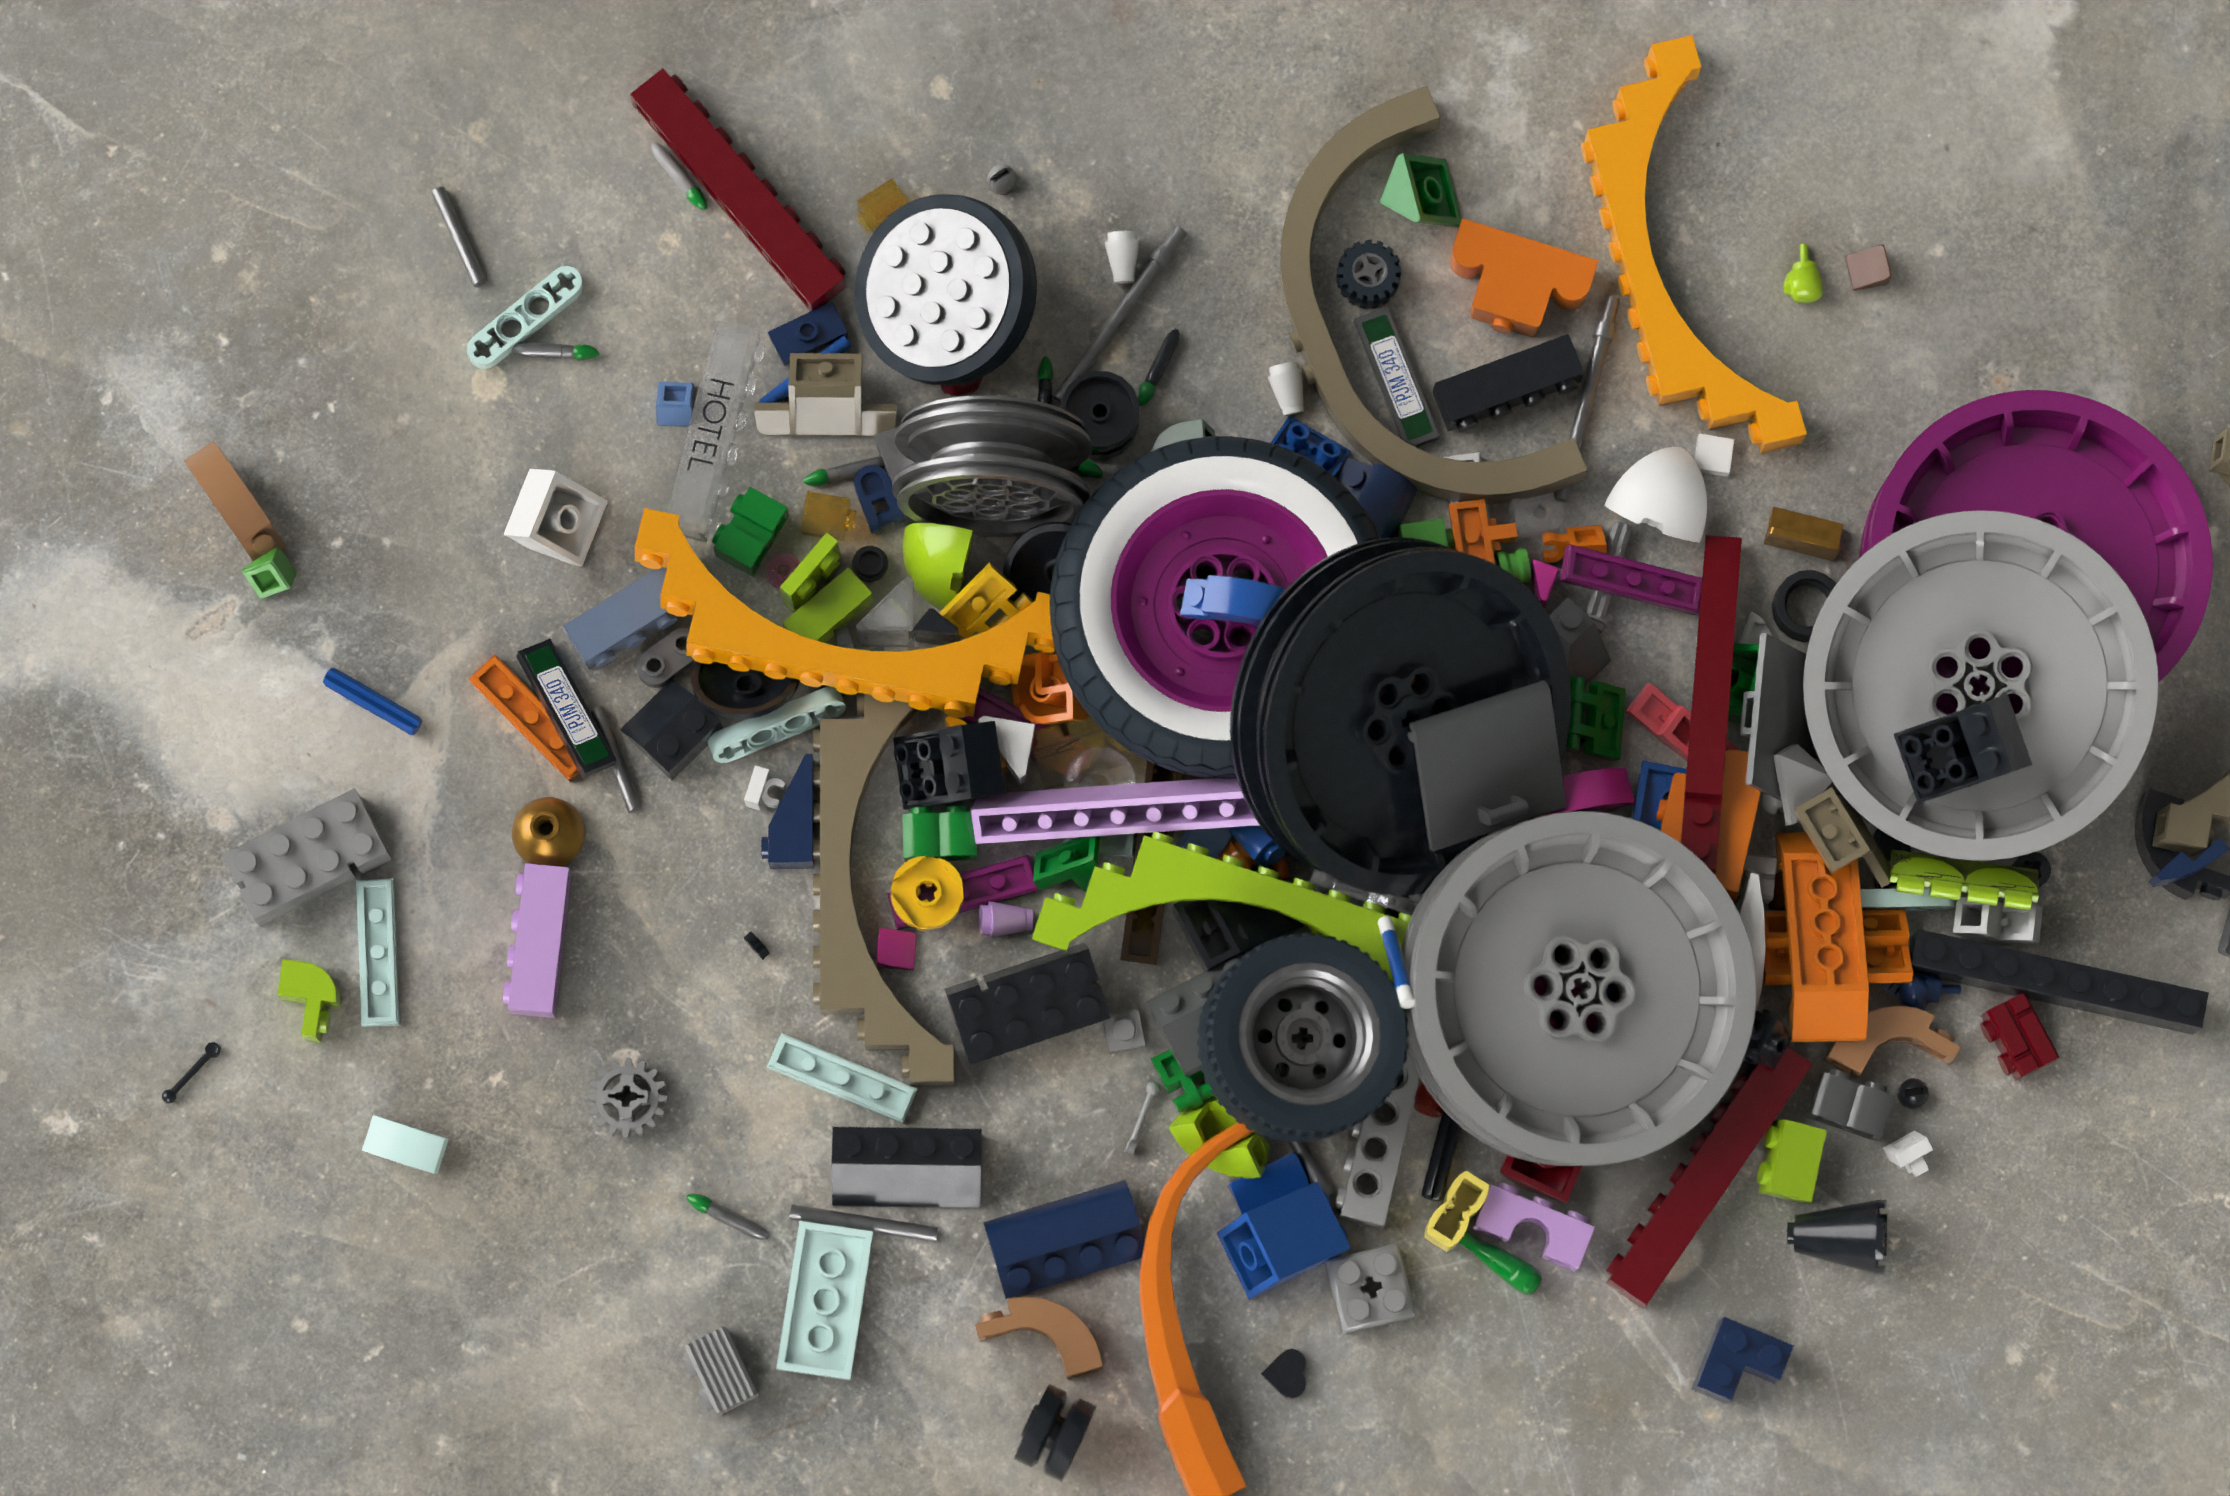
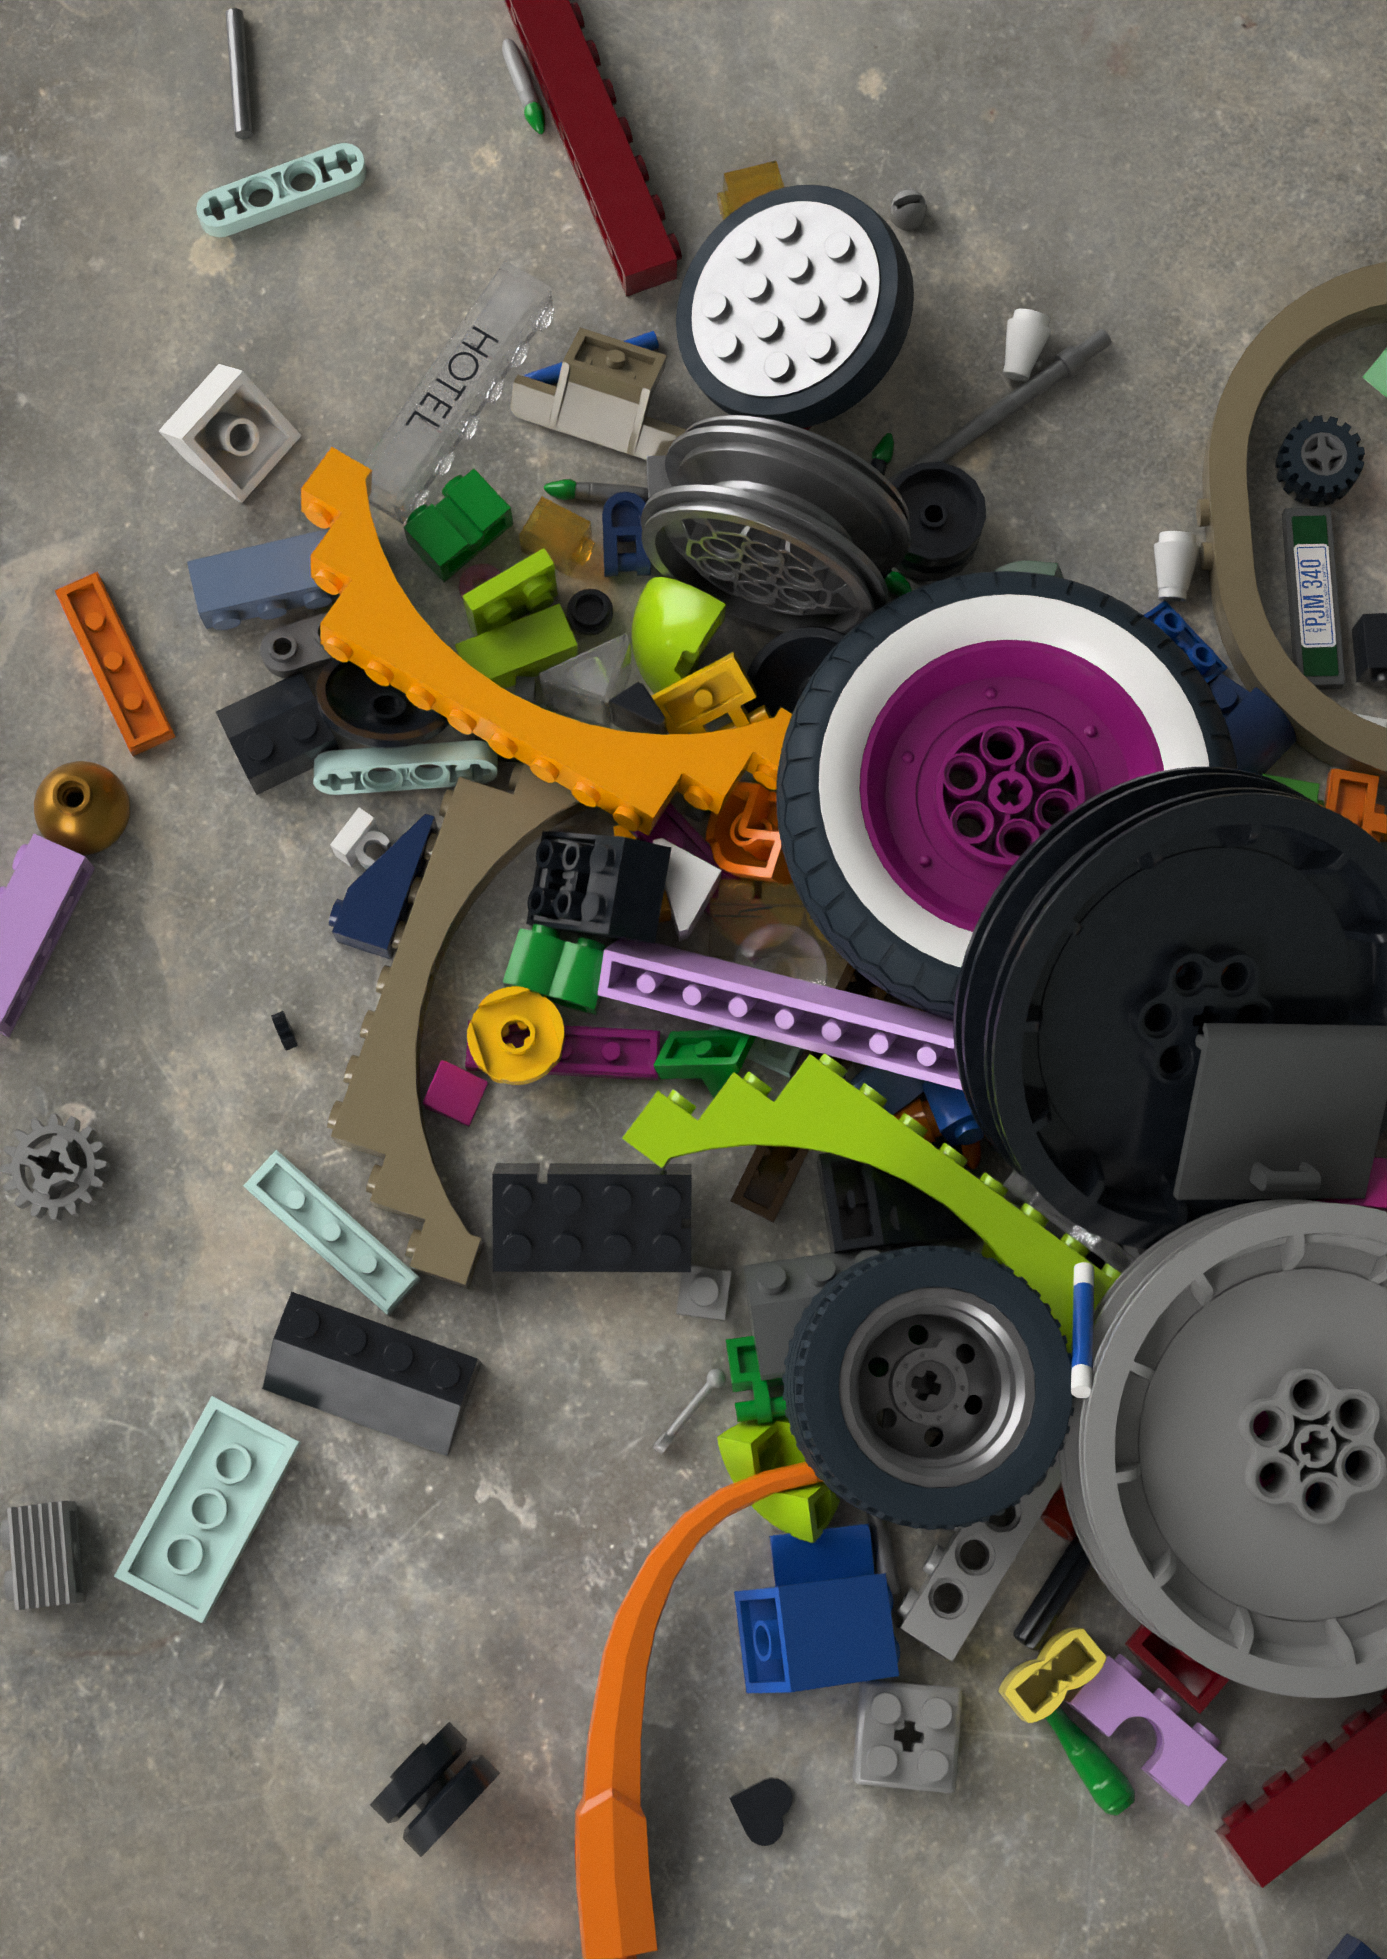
camera: 20 degrees right, 0 degrees up
(547, 350) = (330, 250): flat silver piece -> none
(566, 708) = (157, 664): tile -> none
(619, 769) = (197, 747): flat silver bar -> none
(674, 403) = (420, 345): medium blue slope -> none
(705, 1205) = (128, 1360): flat silver piece -> none
(808, 332) = (613, 313): dark blue plate -> none
(862, 1222) = (293, 1425): flat silver bar -> none
(1003, 919) = (601, 1101): lavender cone -> none
(1055, 1322) = (497, 1654): medium nougat arch -> none
(1065, 1239) = (537, 1534): dark blue brick -> none
(1148, 388) = (1002, 511): black piece -> none
(1228, 599) = (1020, 784): blue arch -> none

